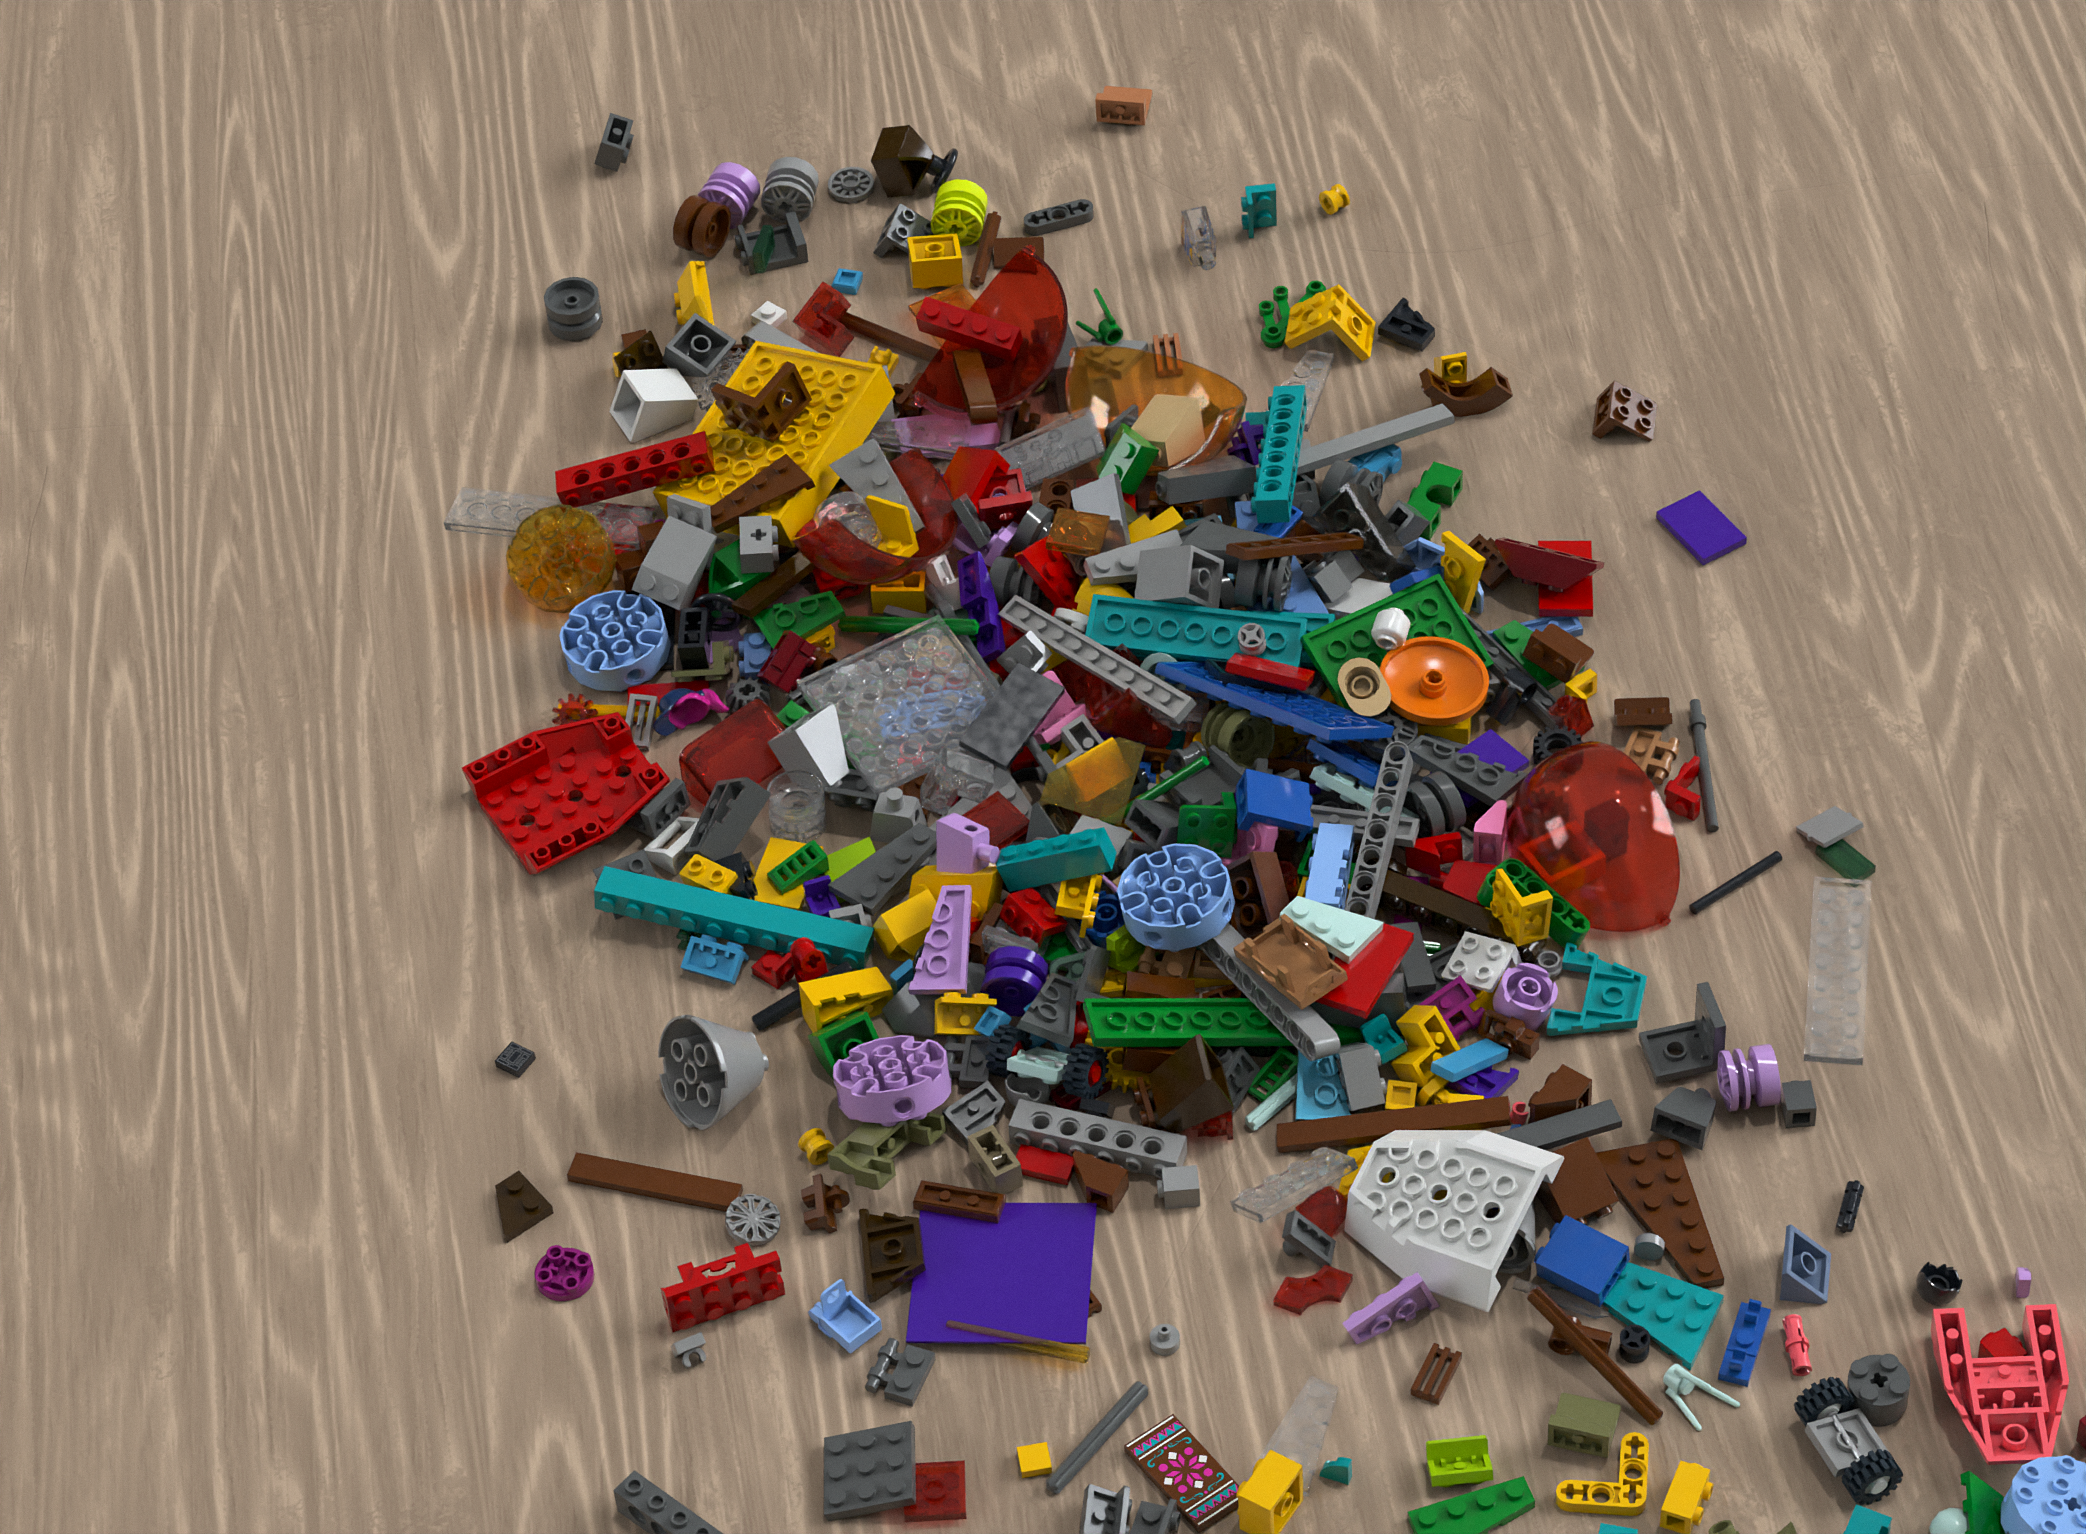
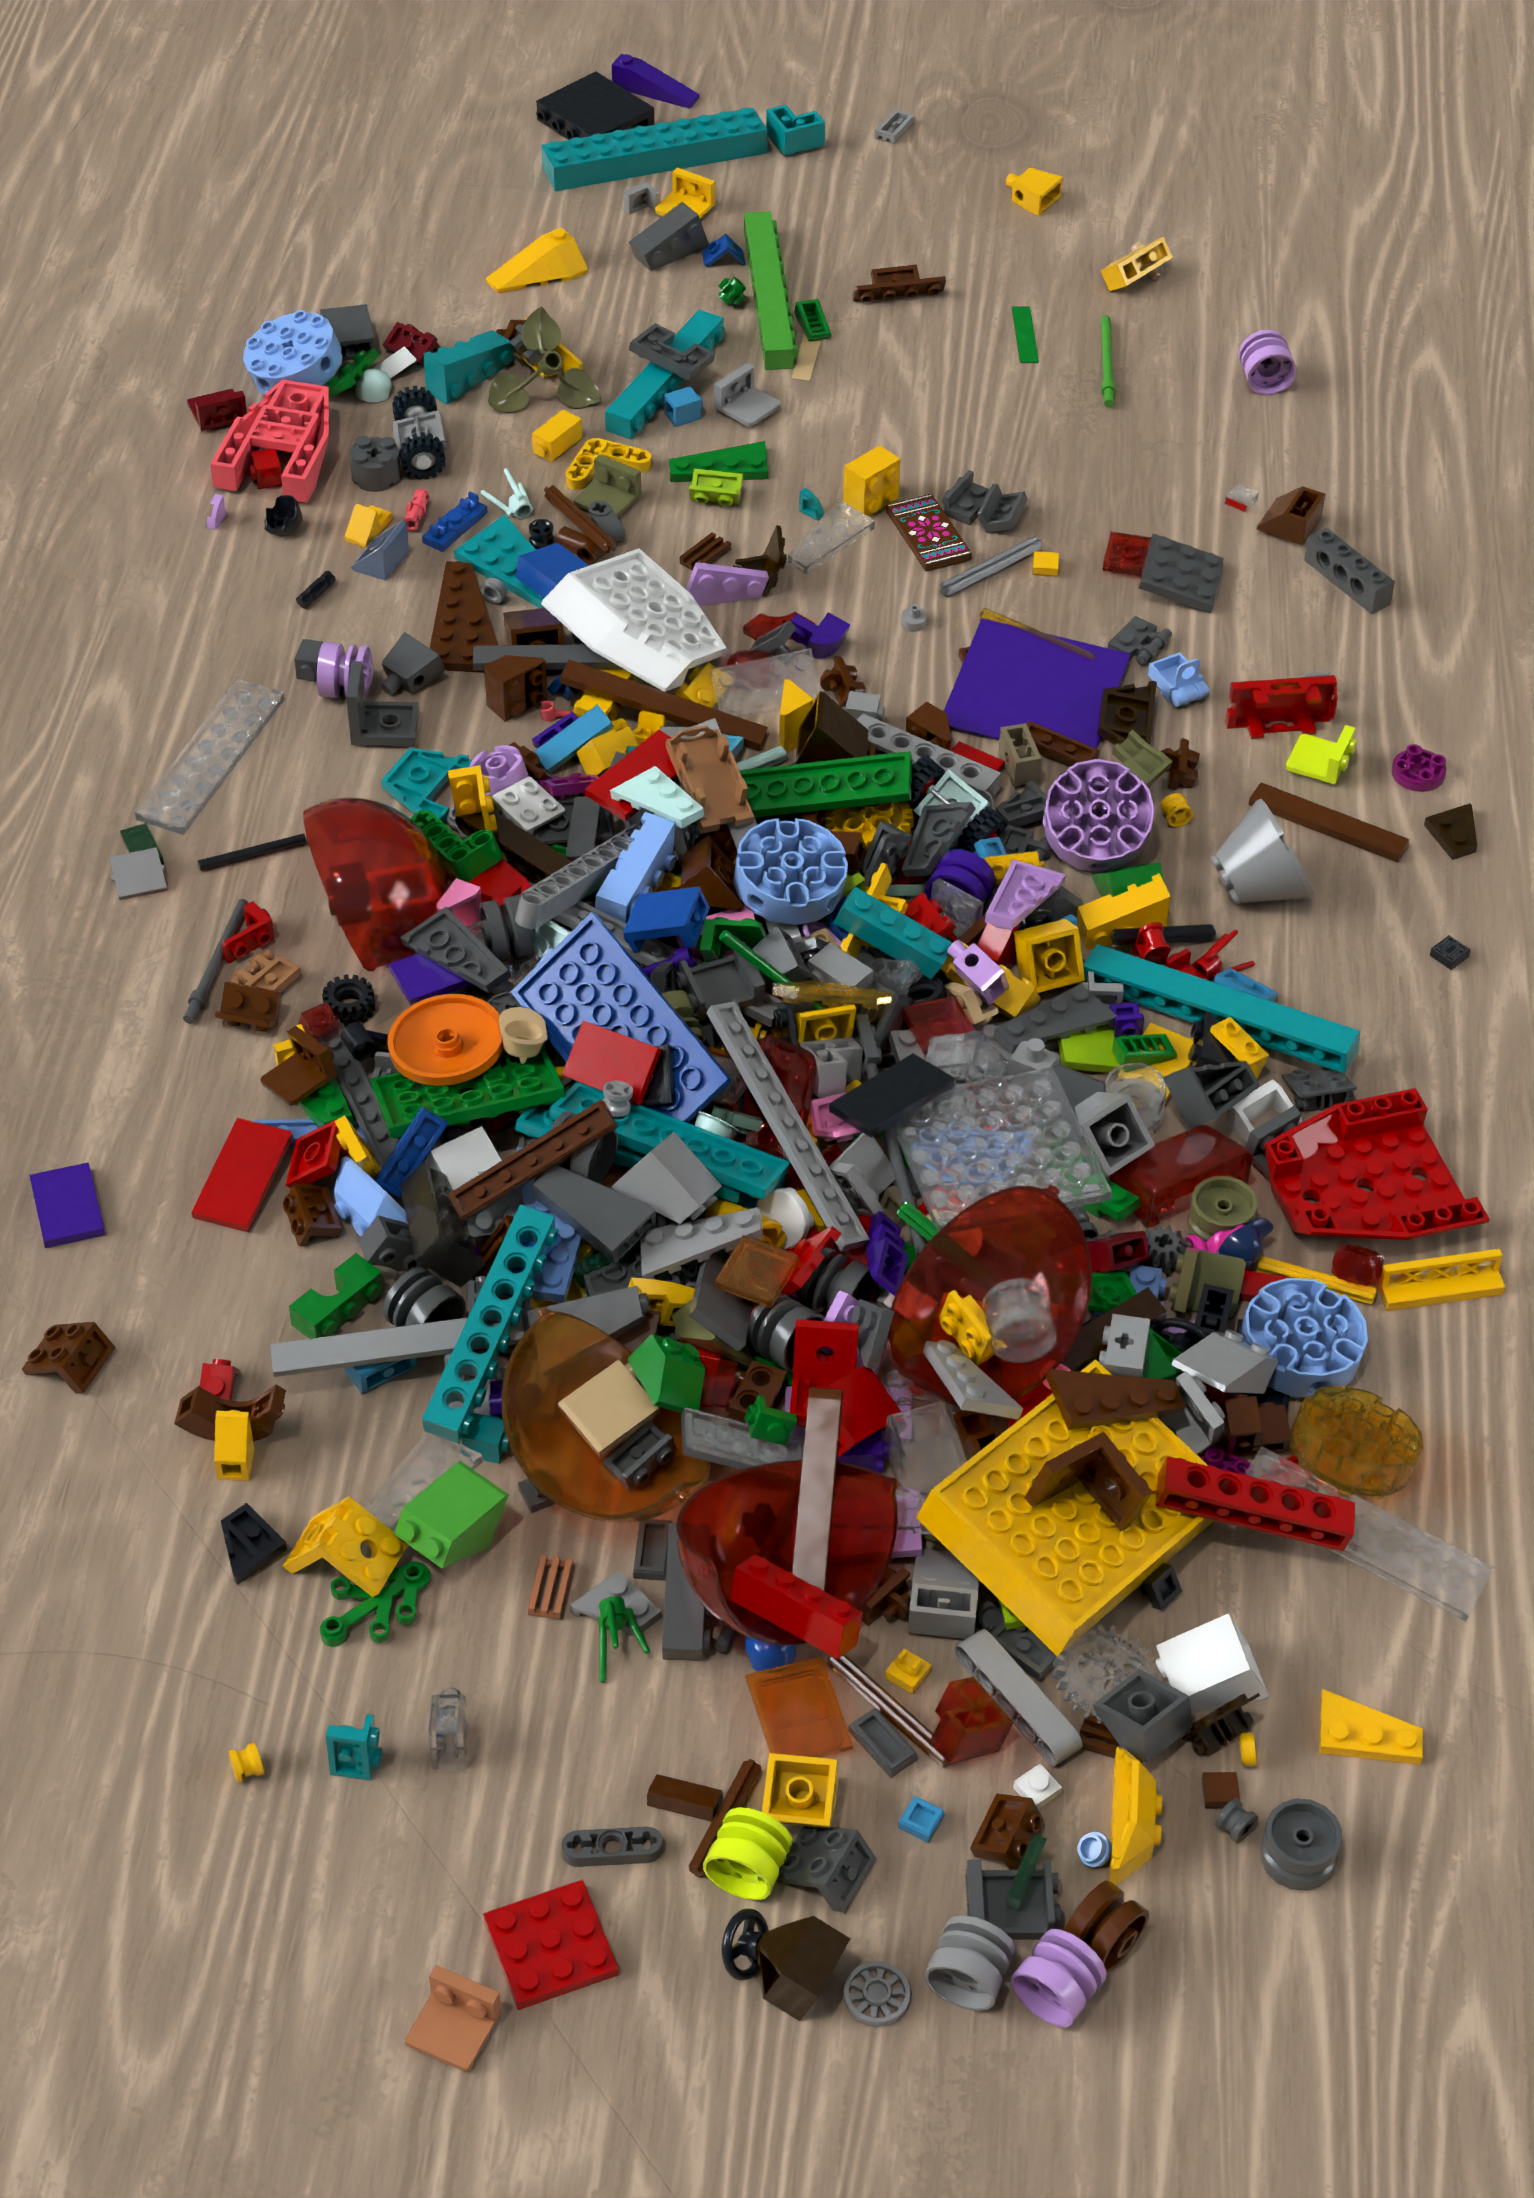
camera: 170 degrees left, 0 degrees up
(499, 733) = (1441, 1283): none -> yellow fence
(540, 400) = (1366, 1733): none -> yellow wing
(614, 141) = (1207, 2146): dark grey brick -> none
(621, 320) = (1236, 1820): none -> dark grey wheel
(645, 744) = (1282, 1259): light grey tile -> none
(665, 1250) = (1321, 757): none -> neon yellow bracket
(692, 719) = (1220, 1205): none -> olive wheel
(720, 284) = (1094, 1849): none -> light blue plate
(751, 981) = (1210, 962): none -> red plant
(752, 1219) = (1244, 770): light grey wheel -> none
(784, 280) = (1007, 1830): none -> reddish brown bracket
(888, 316) = (882, 1742): none -> dark grey tile
(1035, 460) = (769, 1423): none -> green bracket
(1079, 161) = (550, 1944): none -> red plate
(1219, 1232) = (841, 680): none -> reddish brown hips
(1247, 1140) = (793, 710): none -> yellow slope
(1256, 348) = (452, 1516): none -> bright green slope
(1257, 1264) = (822, 639): none -> dark purple brick
(1350, 1342) = (770, 561): none -> dark brown plate
(1390, 628) = (469, 1073): white head -> none
(1494, 425) = (219, 1378): none -> red bracket
(1503, 593) = (315, 1155): none -> red plate
(1545, 565) = (253, 1157): dark red wedge -> none
(1565, 1372) = (607, 520): none -> dark grey piece
(1841, 1315) = (366, 524): none -> yellow slope

